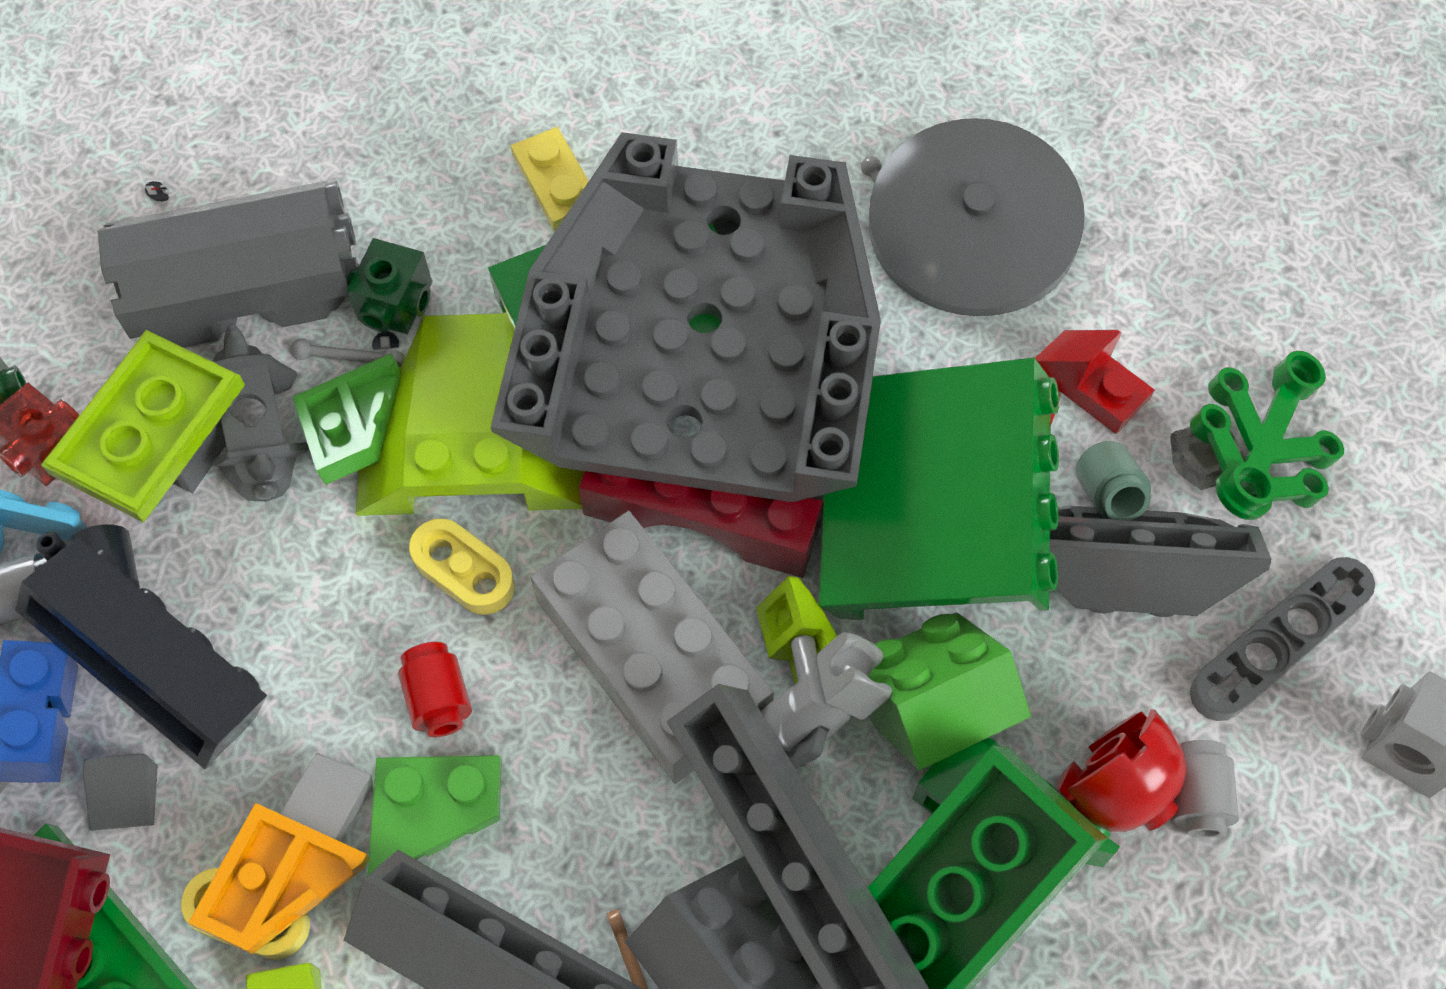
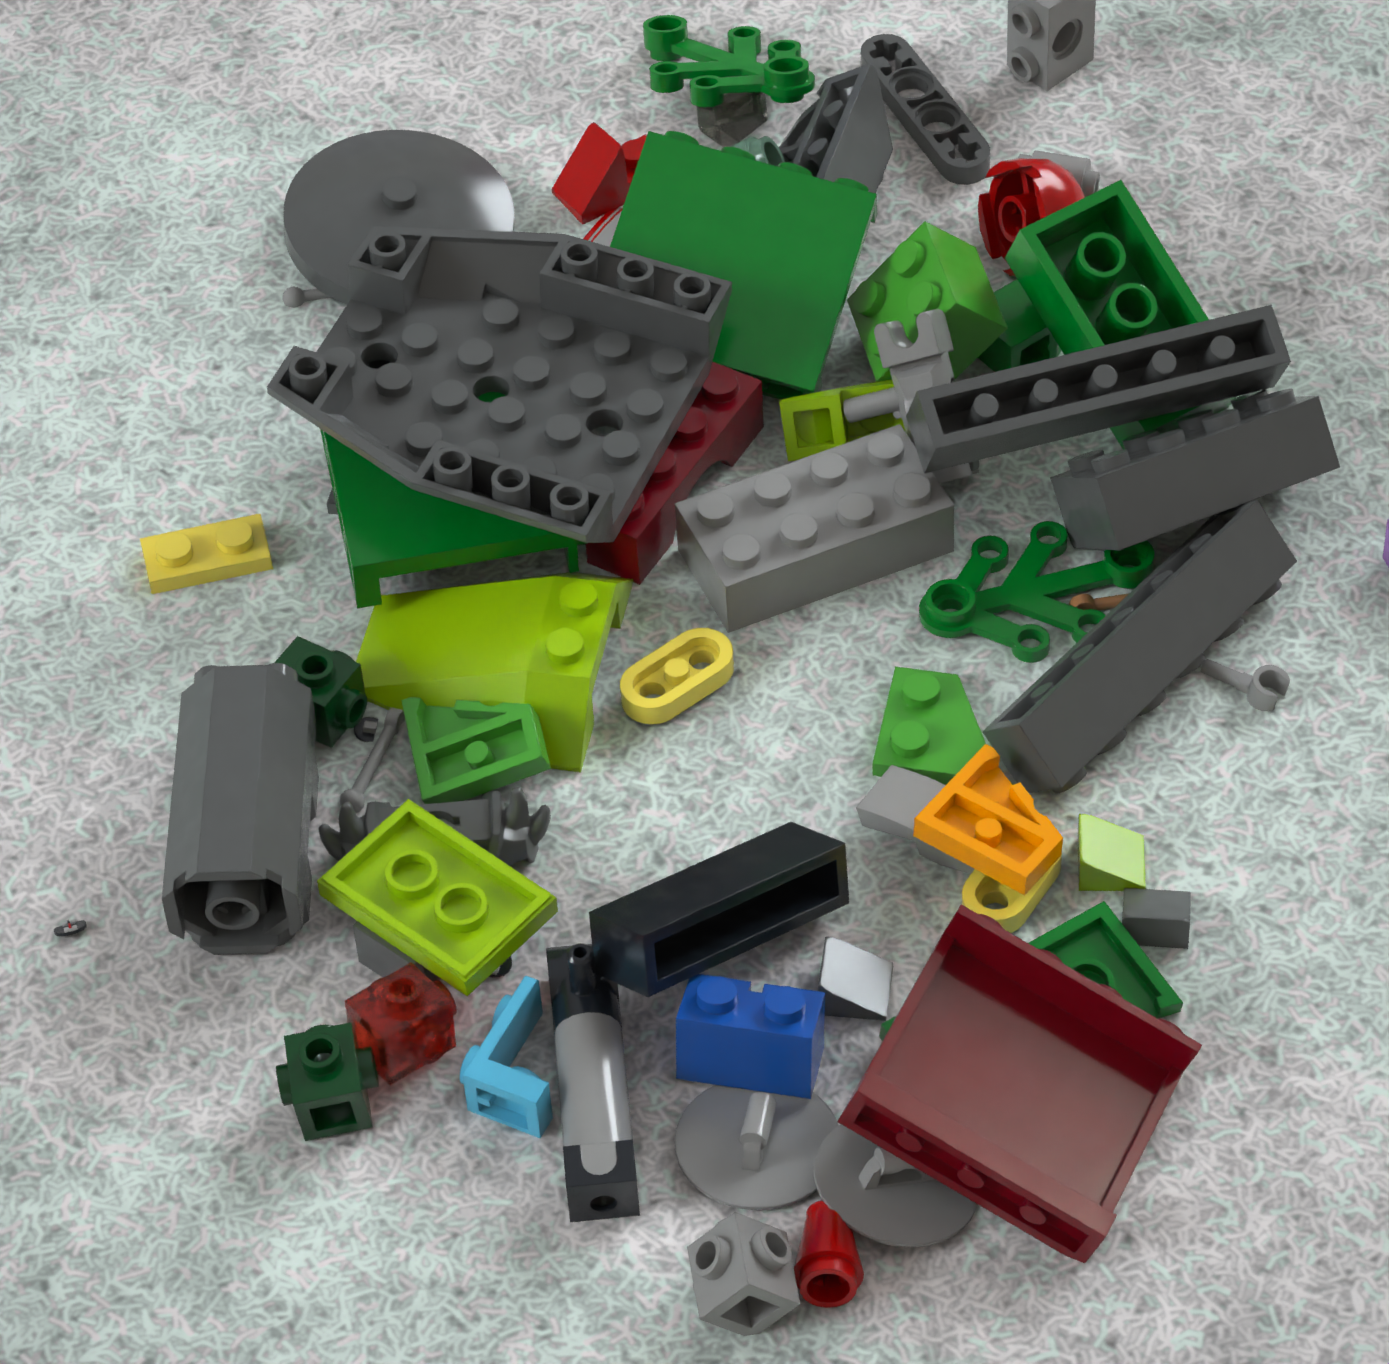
camera: 75 degrees left, 15 degrees down
(434, 689) = (813, 706): red brick -> none
(619, 857) = (1027, 591): none -> green plant

